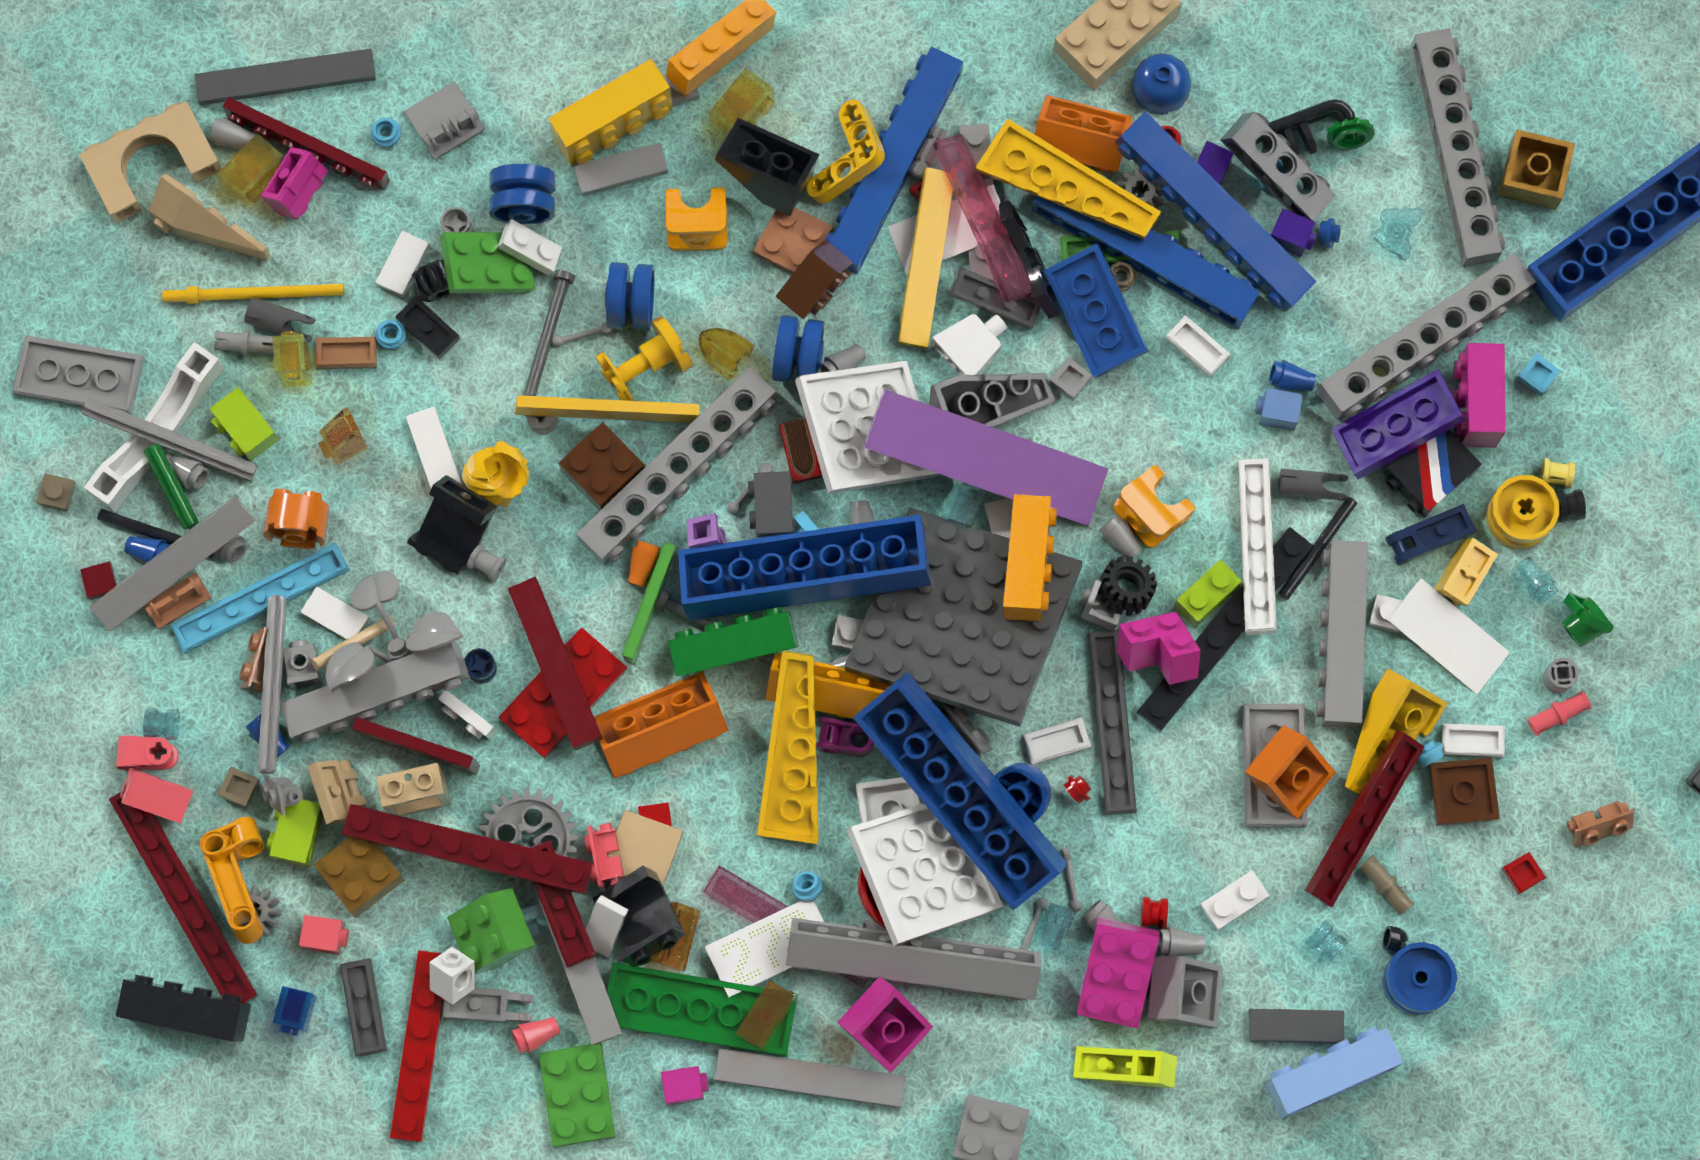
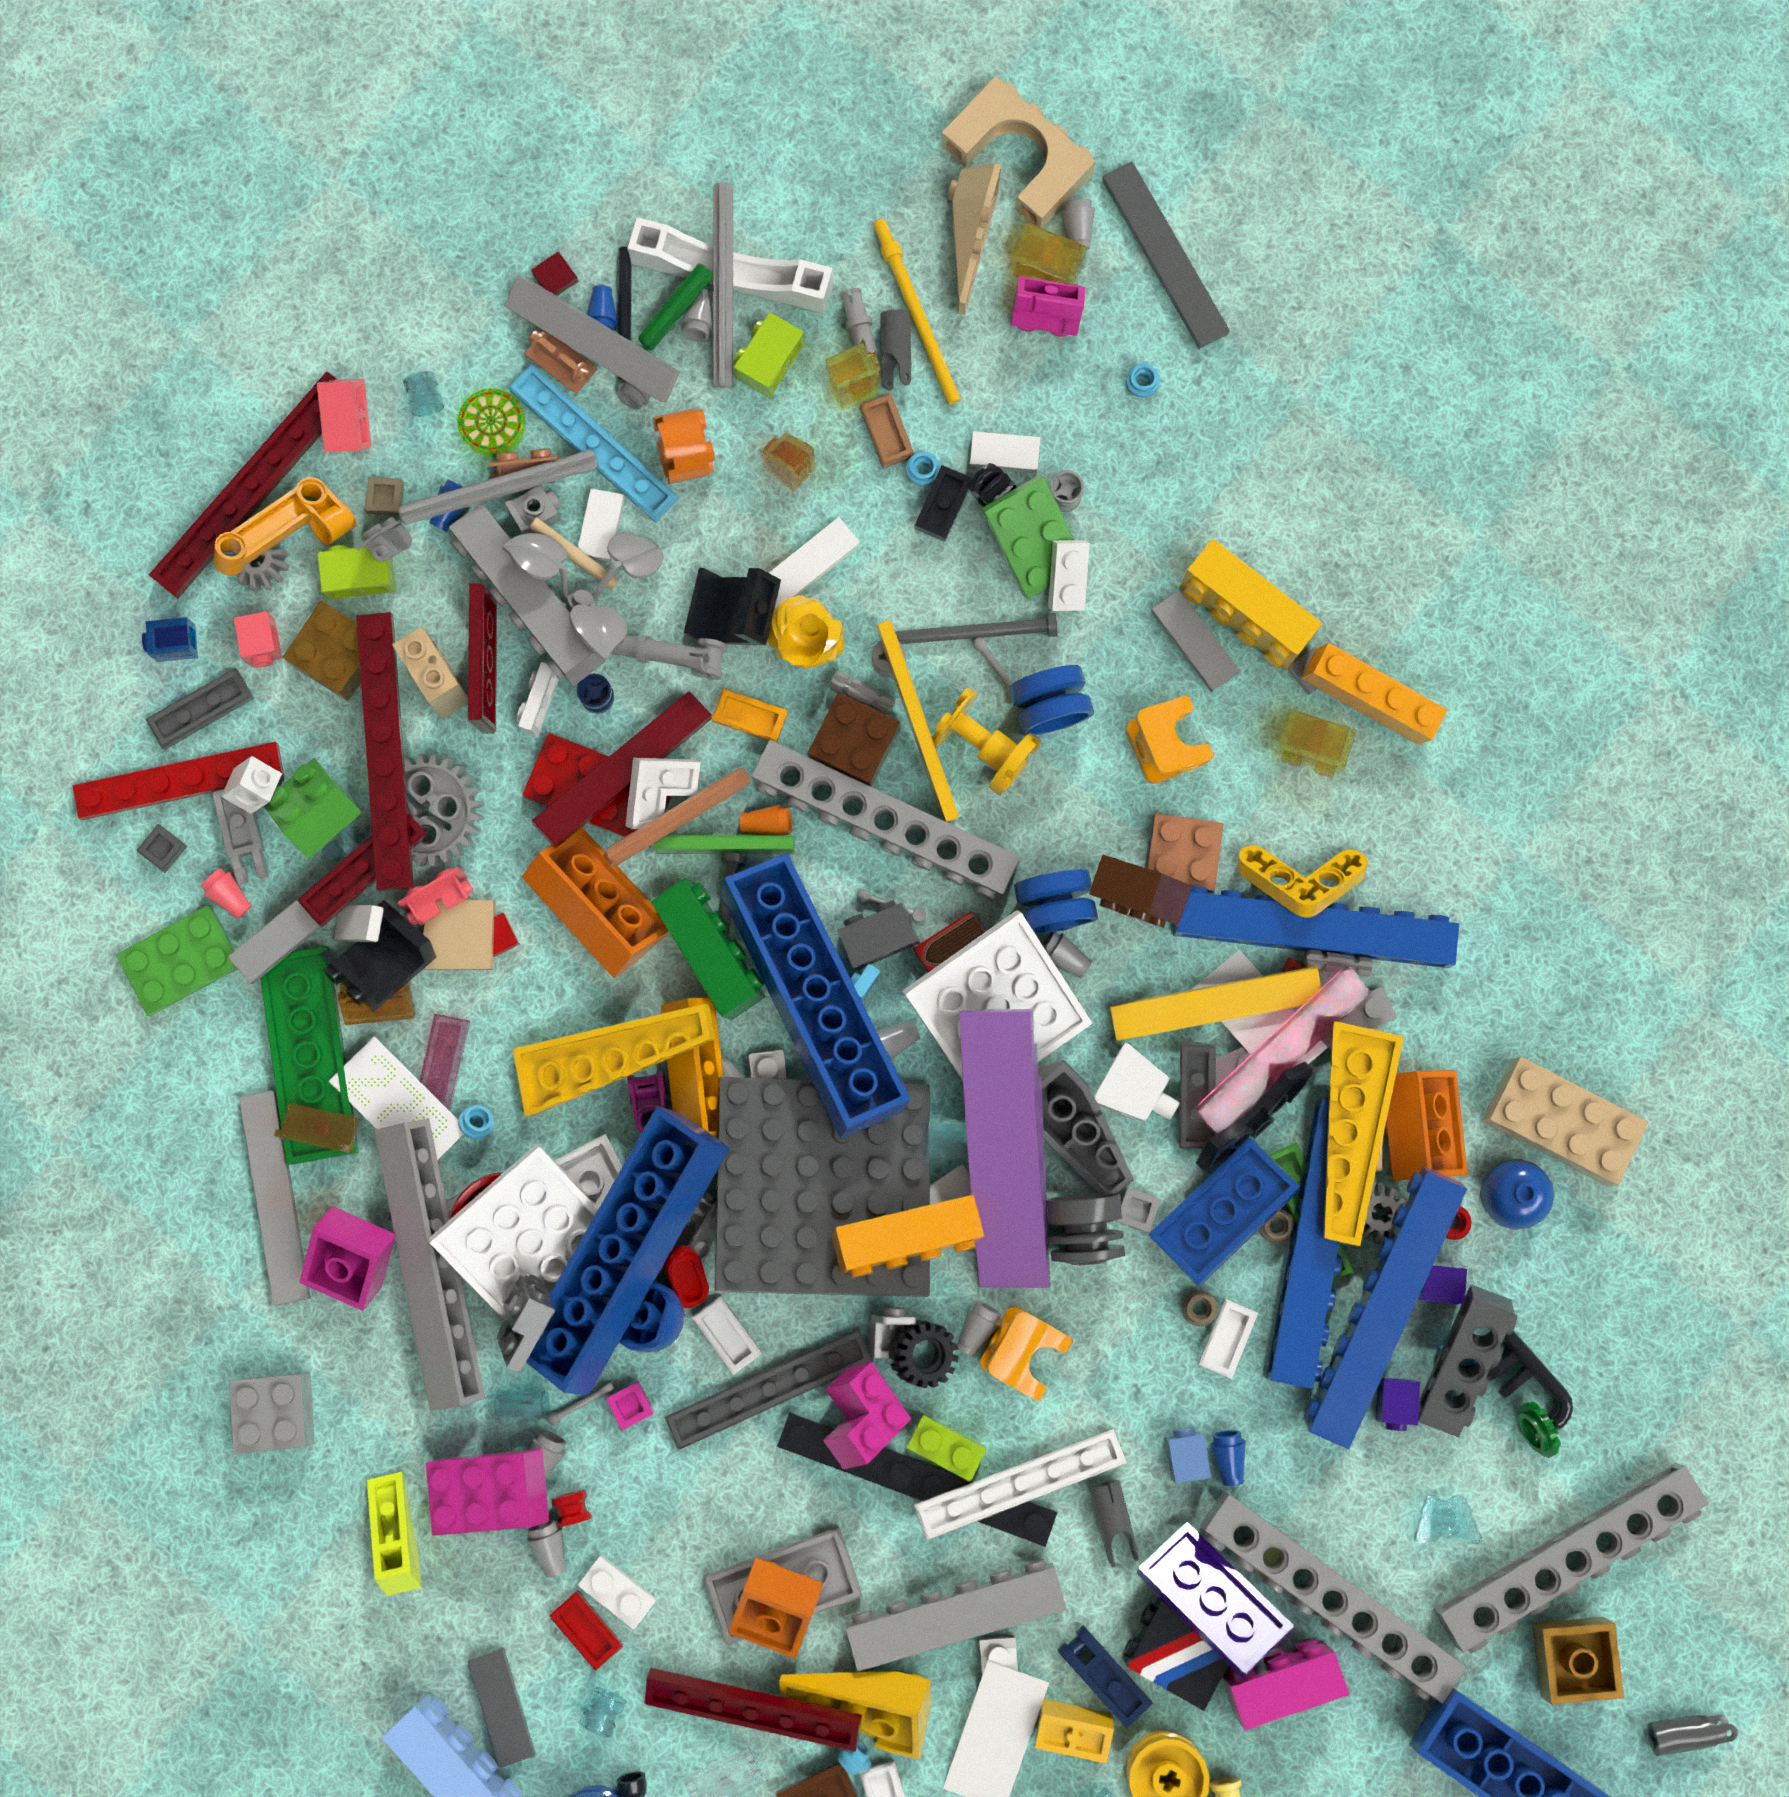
camera: 70 degrees right, 5 degrees up
(56, 492) = (632, 196): dark tan plate -> none
(76, 373) = (764, 171): light grey tile -> none
(141, 752) = (386, 387): coral piece -> none
(183, 1009) = (131, 528): black brick -> none
(208, 676) = (491, 422): none -> clear neon green tile
(336, 788) = (405, 591): tan plate -> none
(342, 162) = (1096, 288): dark red plate -> none
(444, 120) = (1179, 436): light grey hinge -> none
(471, 590) = (647, 649): none -> light grey pin
(473, 1079) = (161, 848): none -> dark grey tile
(522, 193) = (1123, 544): blue wheel -> none
(546, 547) = (749, 715): none -> light orange tile
(548, 462) = (862, 692): none -> light grey axle
(577, 638) = (653, 781): none -> white plate
(613, 631) = (676, 817): none -> nougat axle
(684, 1085) = (220, 1067): dark pink brick -> none
(705, 531) = (819, 882): medium lavender brick -> none
(724, 350) = (1033, 823): clear yellow brick -> none
(767, 165) = (1253, 792): black slope -> none
(989, 886) = (528, 1313): none -> dark grey plate
(997, 752) = (686, 1276): none -> red tile
(1042, 903) = (487, 1378): light grey hinge -> none
(1071, 420) = (1086, 1228): none -> dark grey wheel
(1078, 788) = (680, 1377): red plate -> none
(1087, 837) = (630, 1405): none -> dark pink plate
(1166, 350) = (1209, 1314): none -> dark tan plate
(1185, 991) = (494, 1572): light grey slope -> none
(1257, 936) = (586, 1630): none -> red tile
(1320, 544) = (1047, 1553): black bar -> none
(1329, 233) = (1413, 1443): blue plate -> none
(1386, 885) = (689, 1757): dark tan pin -> none
(1538, 374) = (1336, 1740): medium azure plate -> none
(1619, 110) = (1689, 1734): none -> dark grey piece

